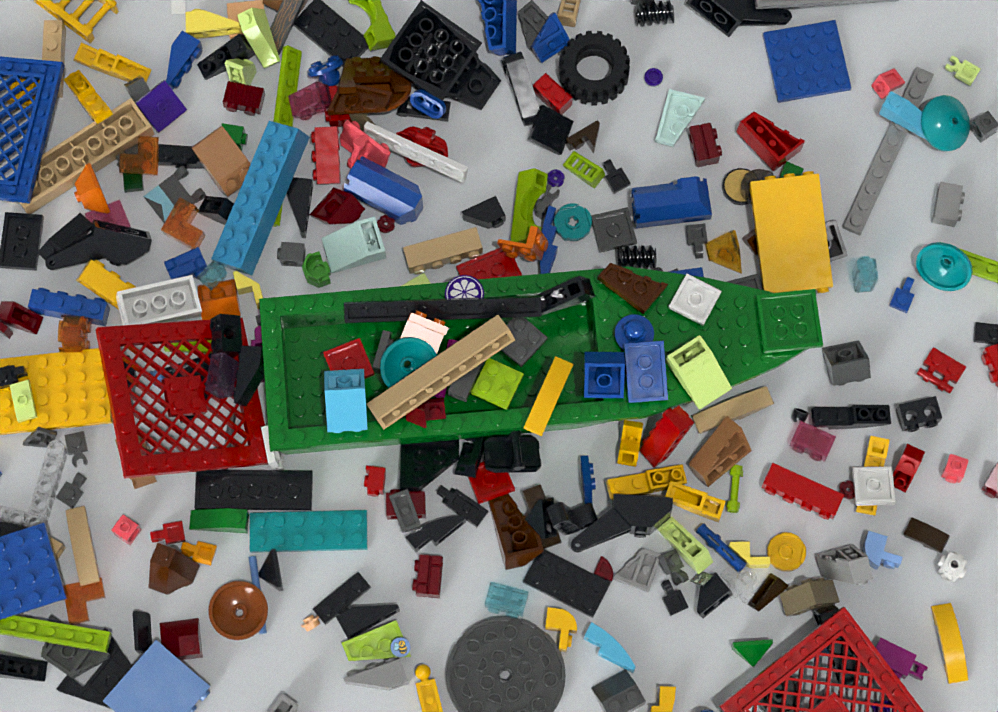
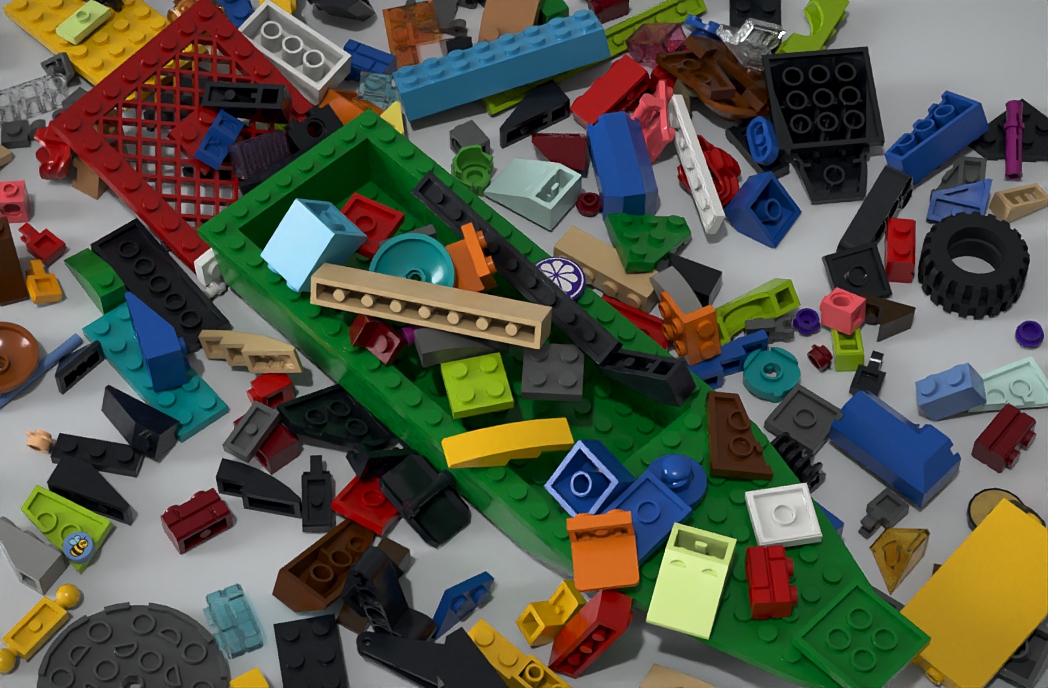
camera: 50 degrees right, 20 degrees down
(107, 476) = (54, 154): none -> red piece
(185, 357) = (249, 101): none -> black slope
(194, 387) = (220, 135): none -> blue slope
(309, 521) = (159, 346): none -> blue slope
(342, 564) = (139, 423): none -> black slope
(355, 471) = (251, 350): none -> tan slope
(361, 56) = (751, 40): none -> clear bracket
(441, 216) = (646, 238): none -> green plate
(467, 140) = (762, 209): none -> blue slope
(492, 230) = (677, 287): none -> light grey slope
(575, 159) = (843, 311): none -> coral brick
(583, 190) = (820, 357): none -> dark red plate
(653, 401) = (603, 550): none -> orange bracket
(662, 147) = (950, 392): none -> medium blue brick
(726, 336) = (769, 582): none -> red brick

